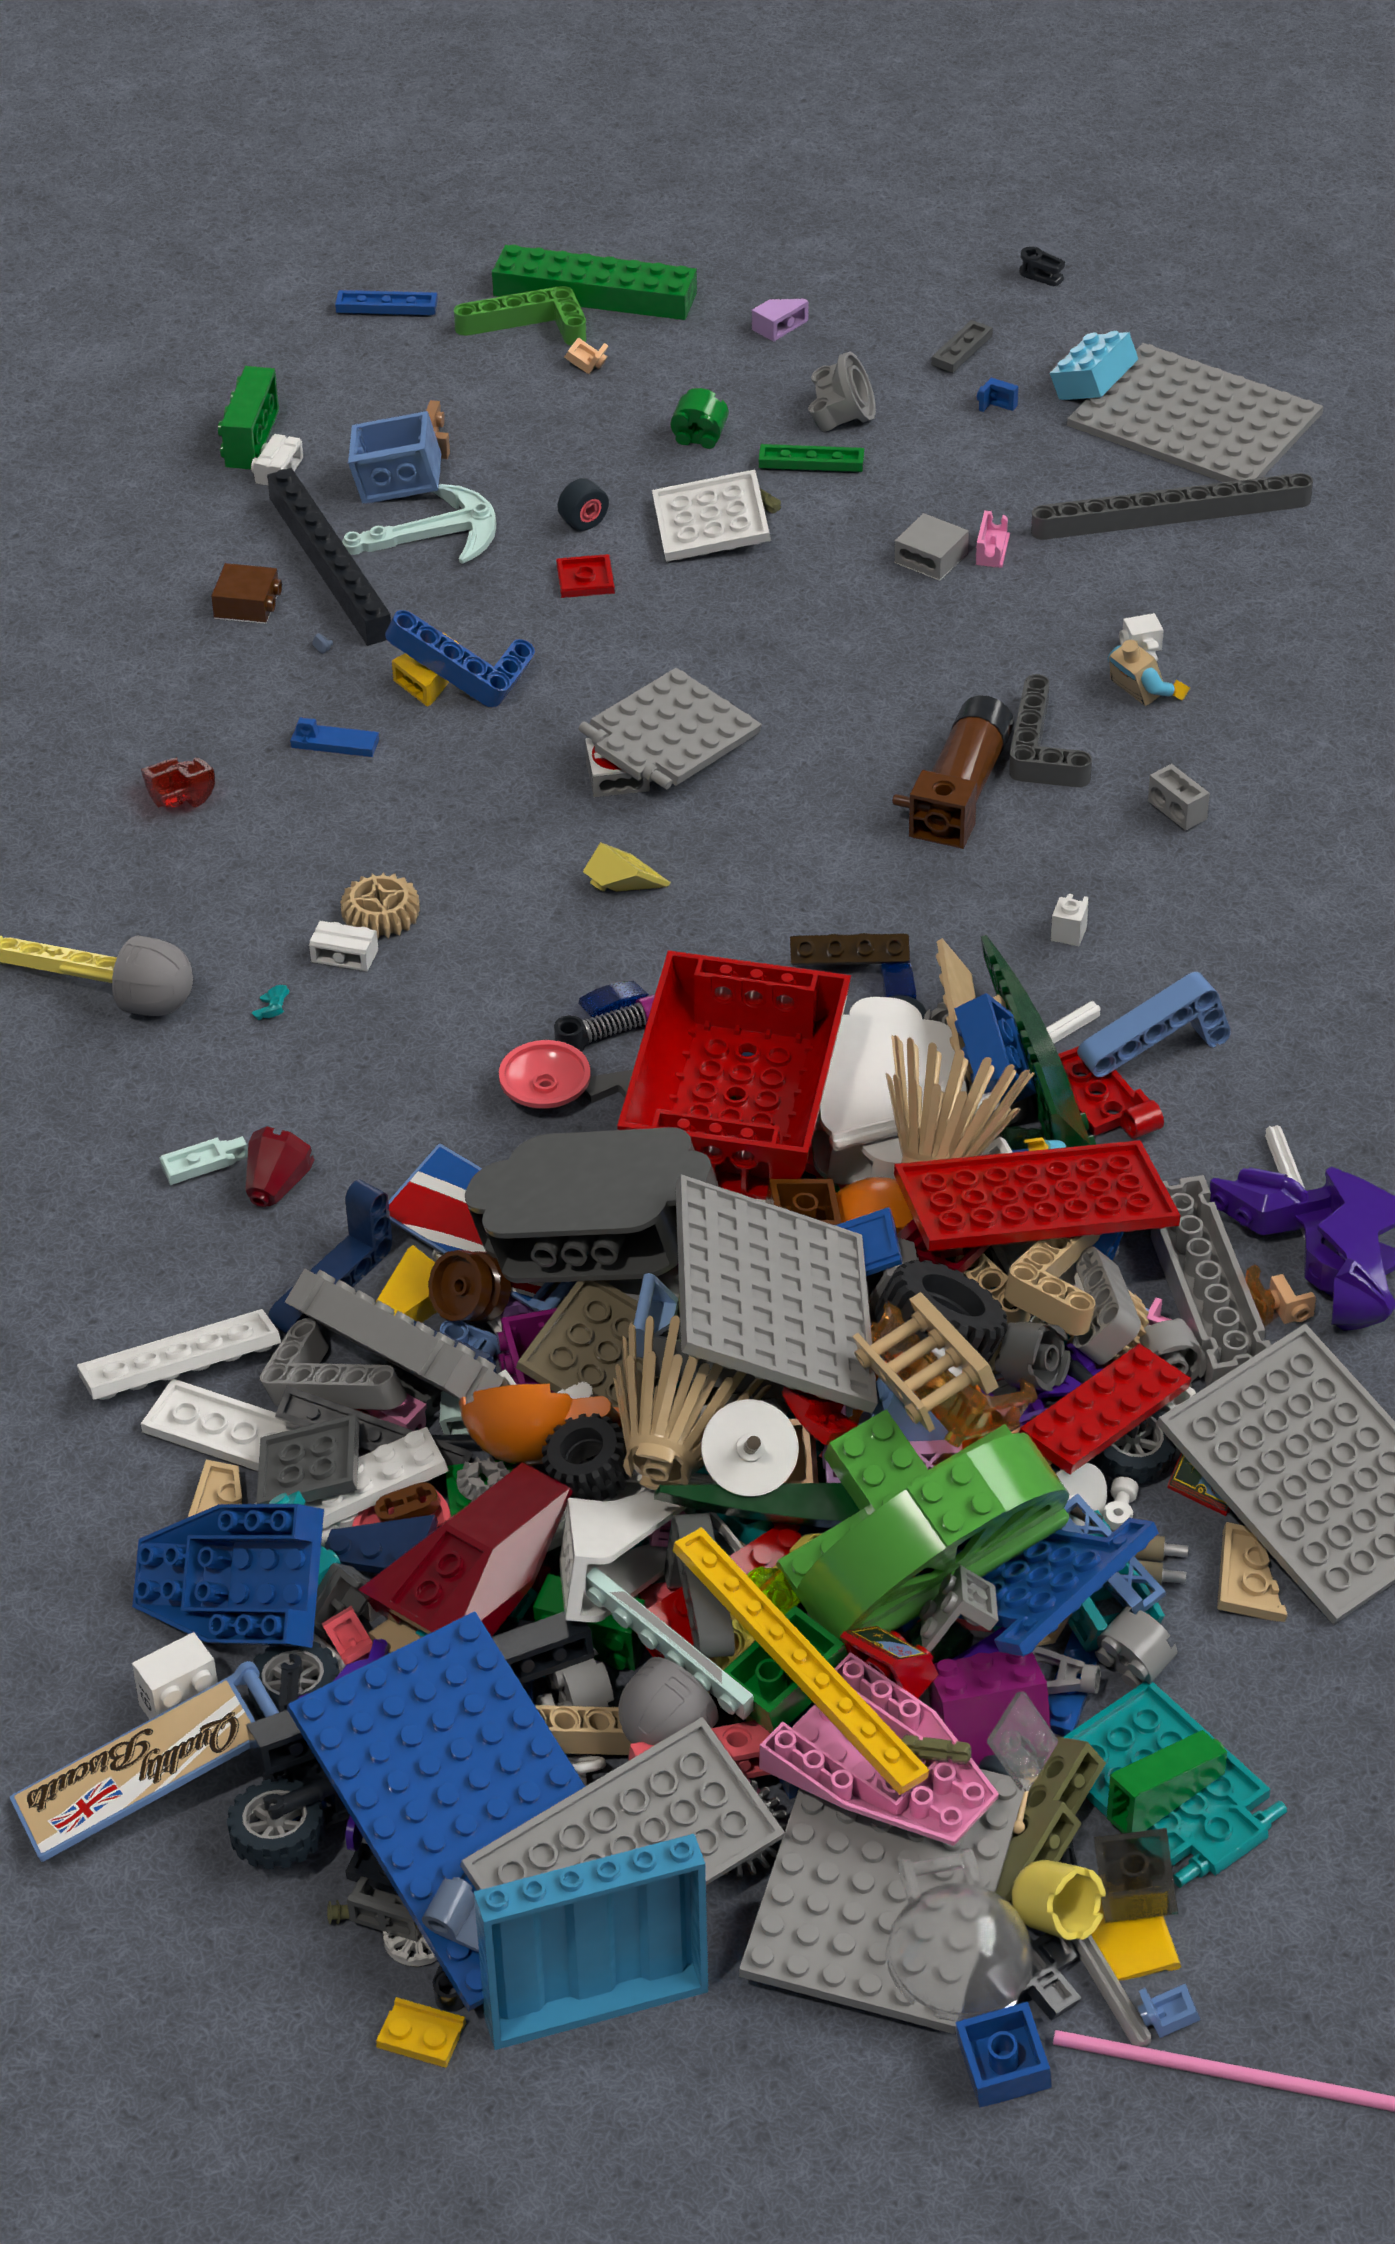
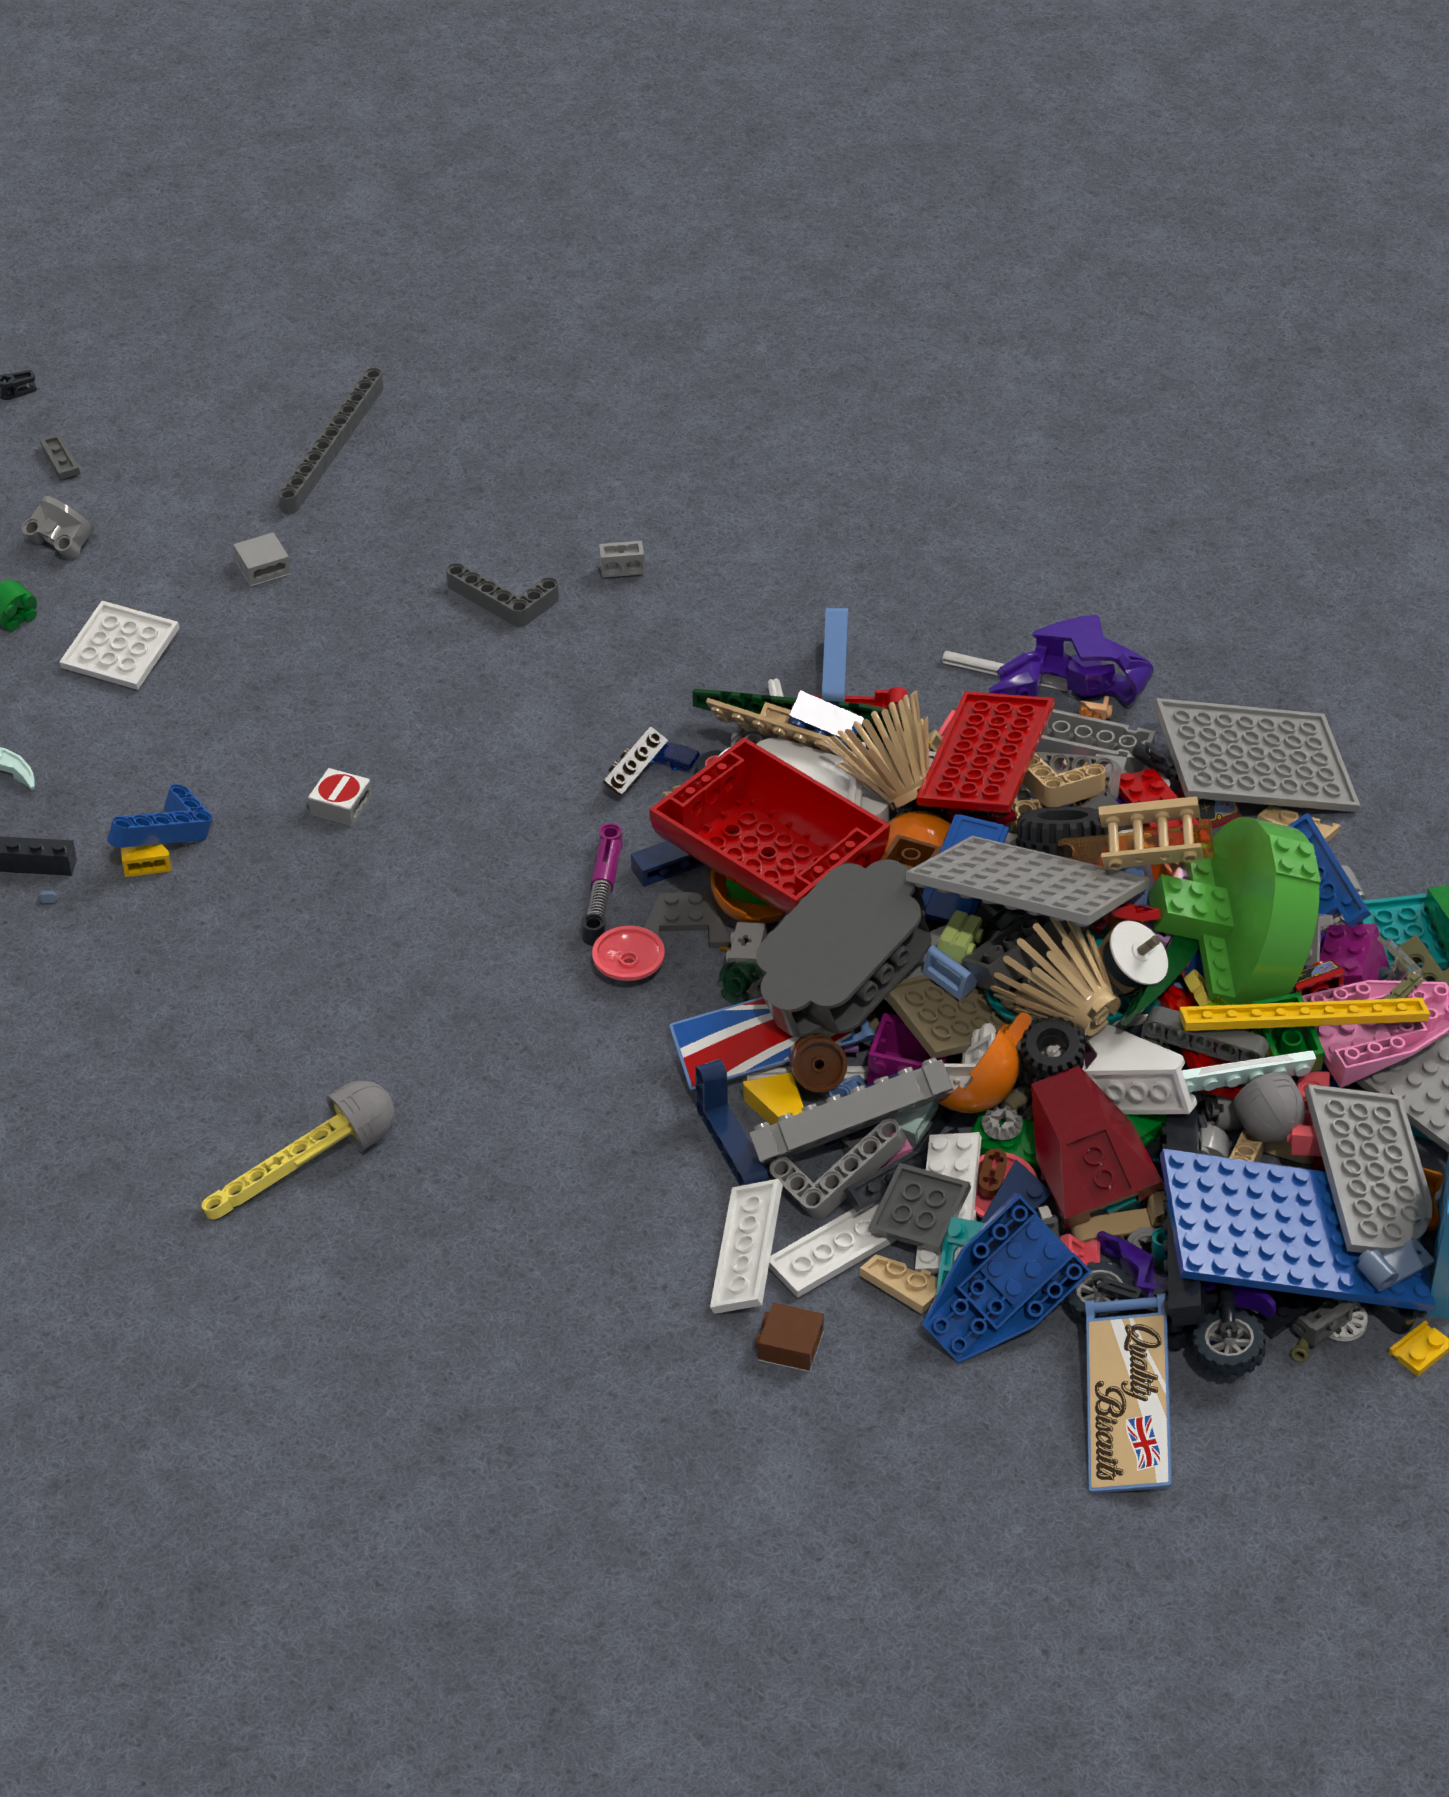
camera: 60 degrees left, 0 degrees up
(72, 1446) = (790, 1336): none -> reddish brown piece
(173, 1675) = (1065, 1354): white brick -> none
(175, 782) = (140, 1027): clear red brick -> none
(202, 1158) = (554, 1166): light aqua hinge -> none
(275, 998) = (417, 1064): teal piece -> none
(275, 1165) = (602, 1125): dark red cone -> none
(333, 739) = (162, 932): blue hinge -> none
(343, 946) = (399, 1007): white brick -> none
(381, 904) = (374, 973): tan gear -> none
(583, 504) = (45, 699): black wheel -> none
(585, 576) = (112, 734): red tile -> none
(611, 998) = (574, 895): clear blue slope -> none
(621, 871) = (453, 839): light yellow slope -> none
(669, 730) = (337, 753): light grey plate -> none
(811, 457) = (103, 574): green plate -> none
(946, 798) = (536, 658): reddish brown piece -> none
(992, 541) = (287, 537): bright pink hinge -> none
(998, 394) = (133, 461): blue bracket -> none
(1069, 920) = (690, 655): white brick -> none
(1094, 365) = (158, 405): medium azure brick -> none
(1139, 674) = (485, 523): tan torso -> none
(1144, 630) = (447, 507): white brick -> none
(1197, 416) = (245, 391): light grey plate -> none
(1206, 1363) = (1155, 760): none -> black plant

